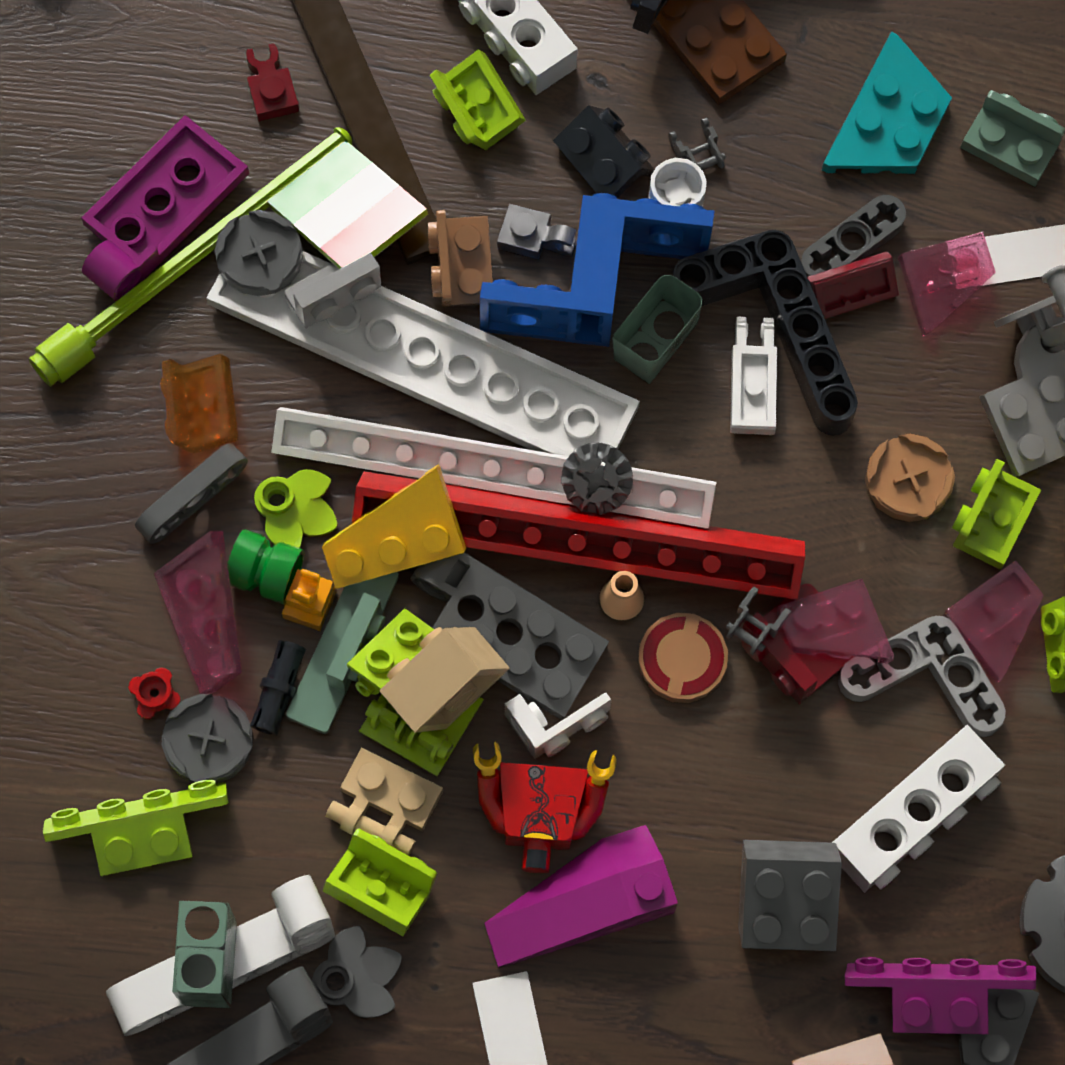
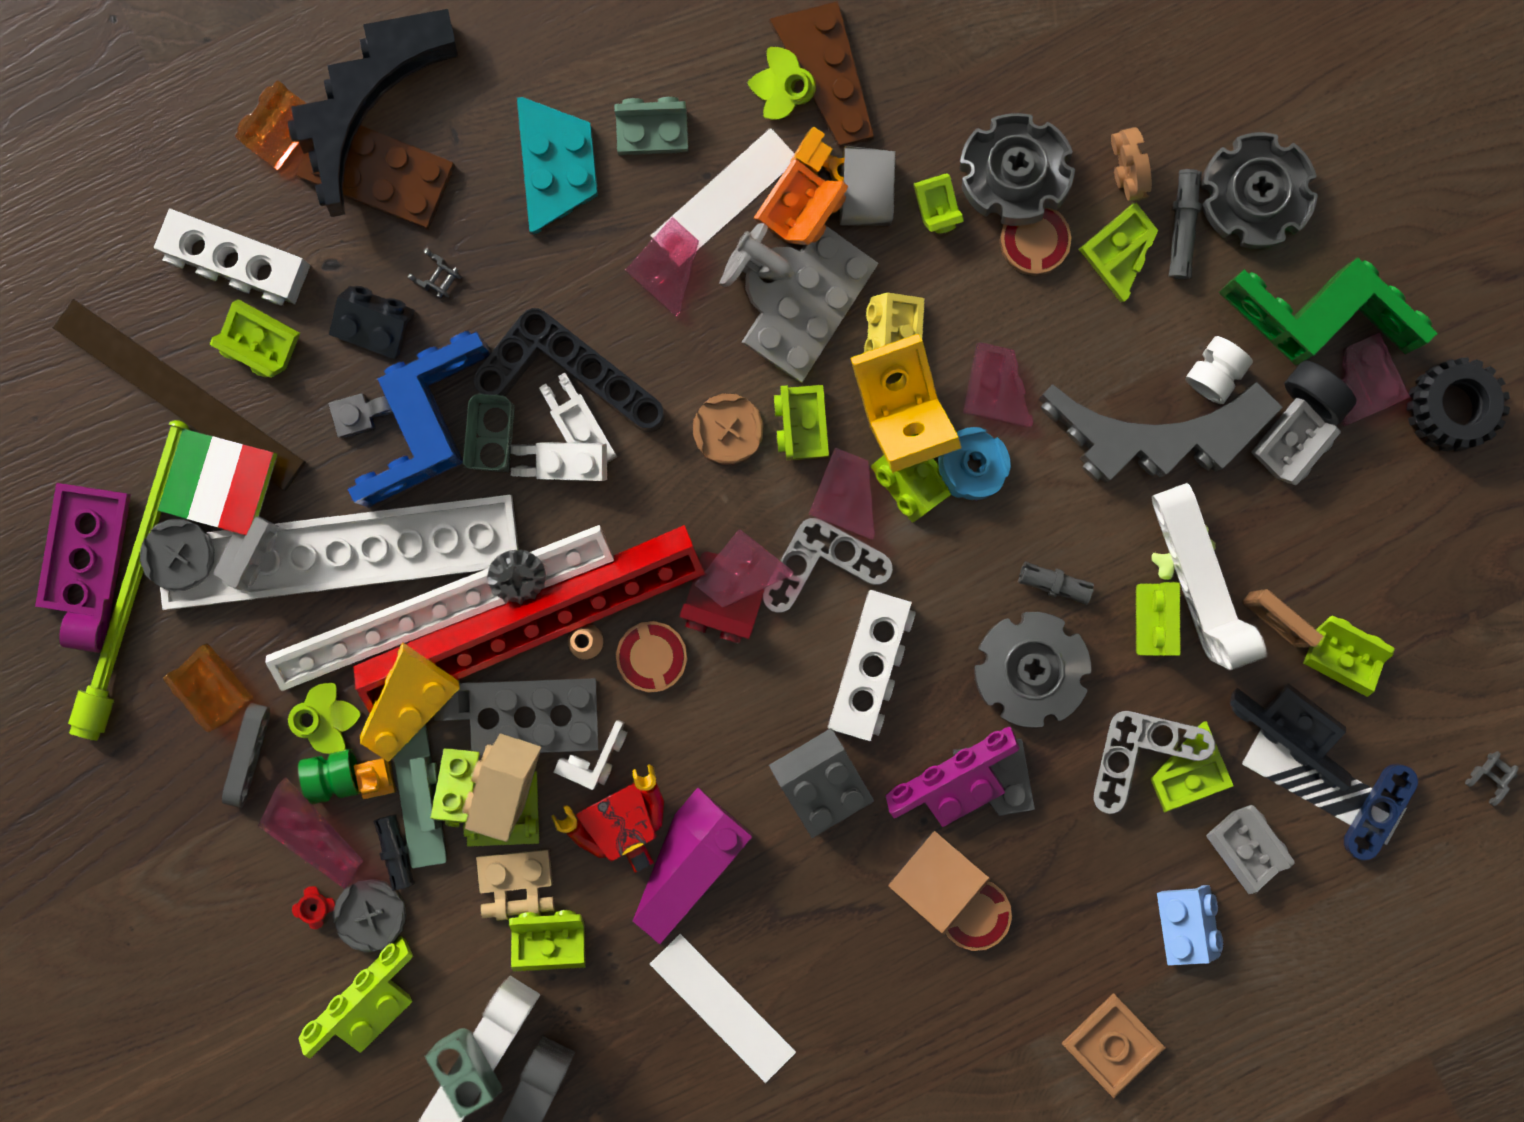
camera: 25 degrees left, 15 degrees up
(271, 88) = (104, 420): dark red plate -> none
(364, 972) = (574, 1004): dark grey plate -> none
(462, 257) = (320, 470): medium nougat bracket -> none
(678, 183) = (439, 322): white wheel -> none
(717, 400) = (563, 461): none -> white hinge
(743, 611) = (687, 628): dark grey piece -> none
(855, 285) = (606, 313): dark red plate -> none
(883, 233) = (602, 256): dark grey beam -> none

